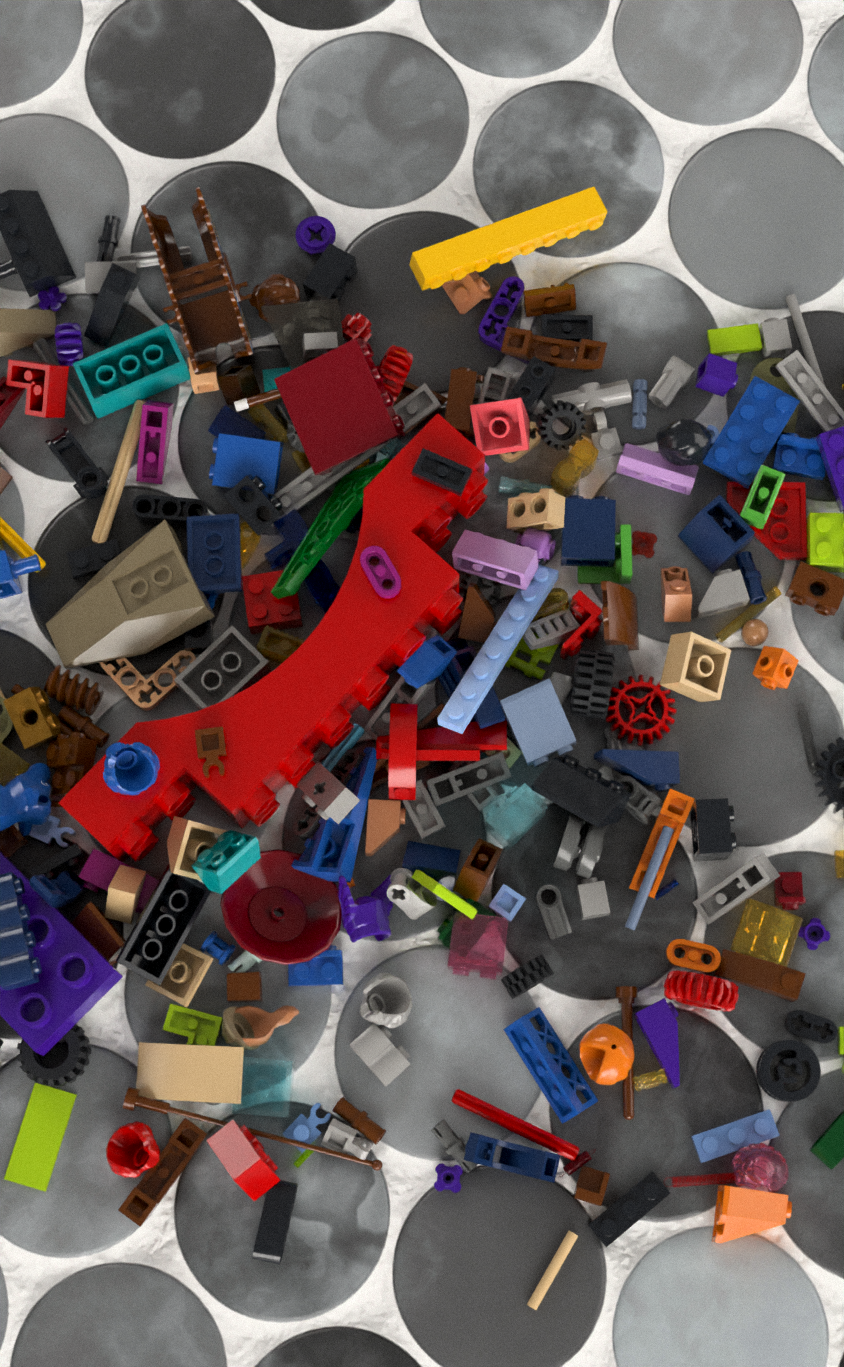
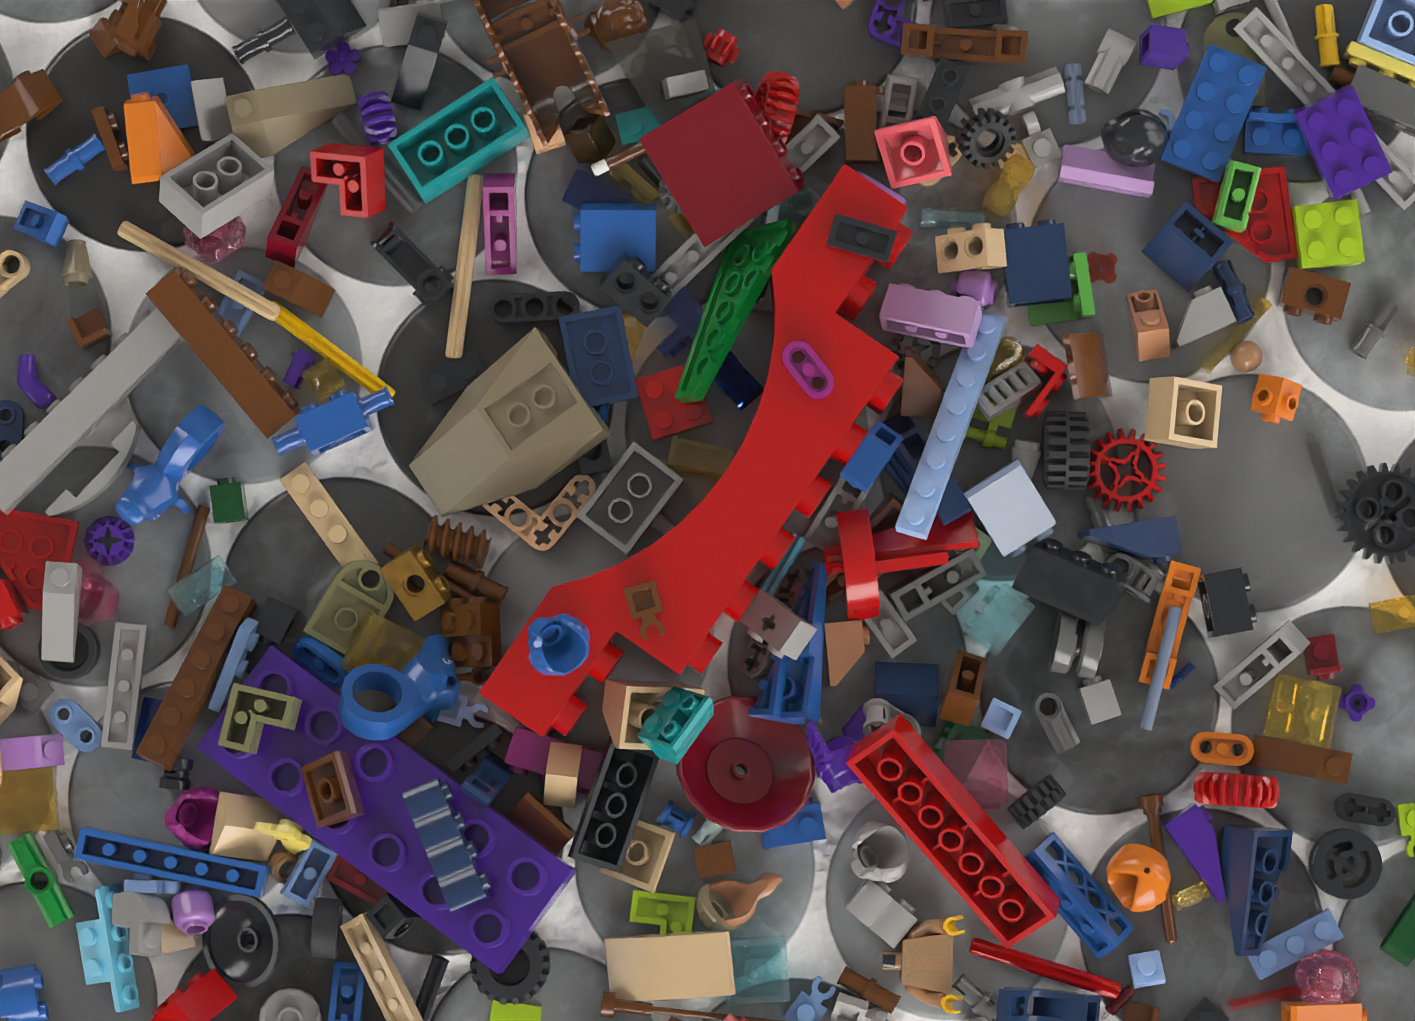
camera: 10 degrees left, 10 degrees up
(413, 1103) = (927, 962): none -> medium nougat torso
(444, 893) = (930, 724): lime tile -> none
(451, 989) = (953, 831): none -> red brick
(603, 1138) = (1146, 969): none -> light blue plate
(706, 1063) = (1251, 870): none -> dark blue wedge

